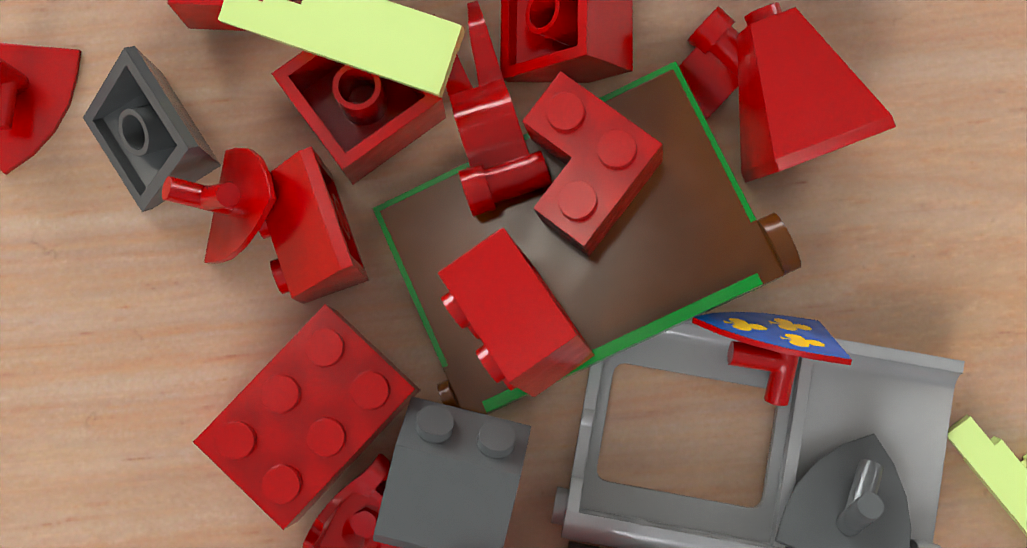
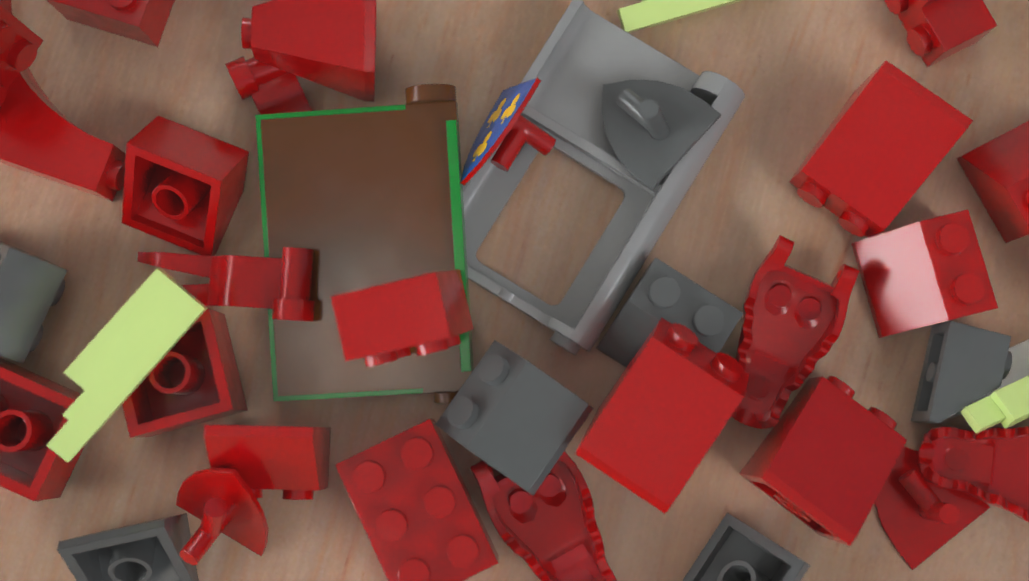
camera: 65 degrees left, 0 degrees up
(603, 156) = (308, 201): red brick -> none

